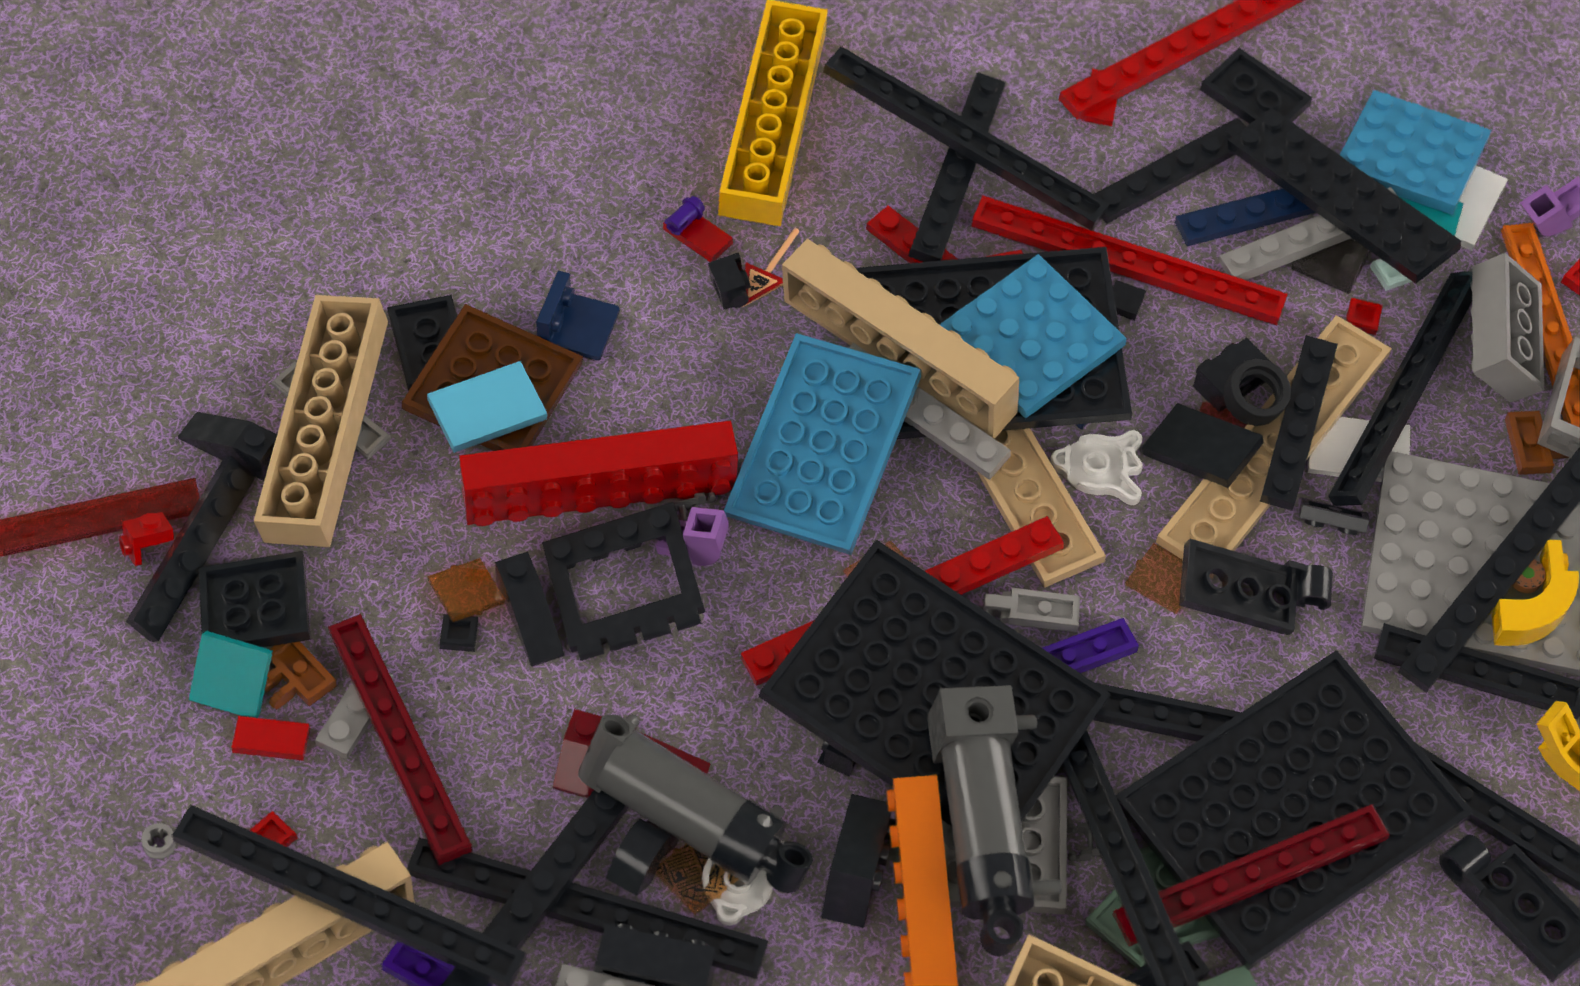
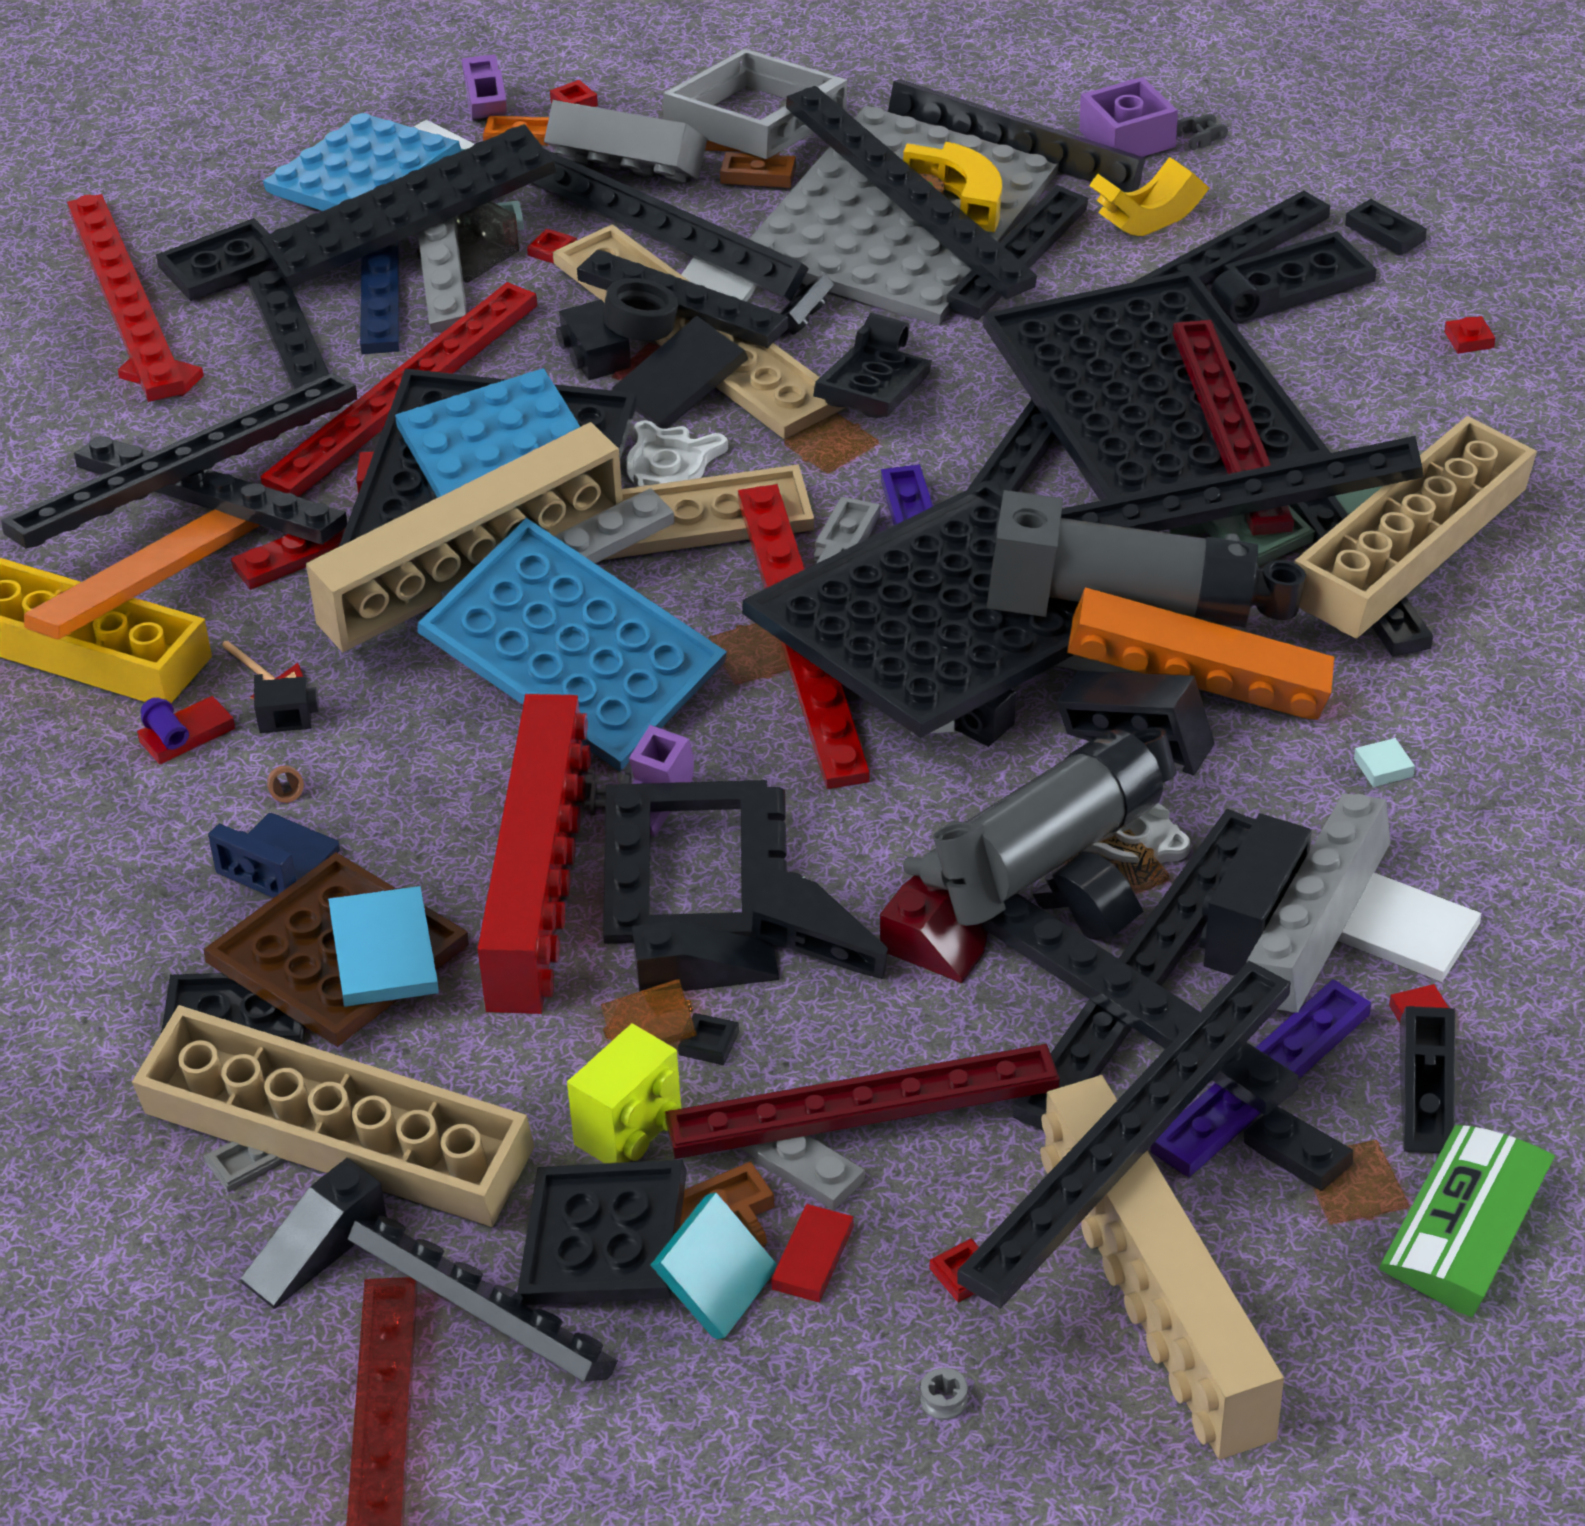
camera: 70 degrees left, 15 degrees down
(144, 532) = (445, 1346): red bracket -> none
(366, 585) = (623, 1096): none -> neon yellow brick
(570, 668) = (811, 922): none -> black slope
(652, 303) = (294, 779): none -> nougat hinge
(822, 148) = (135, 574): none -> orange tile

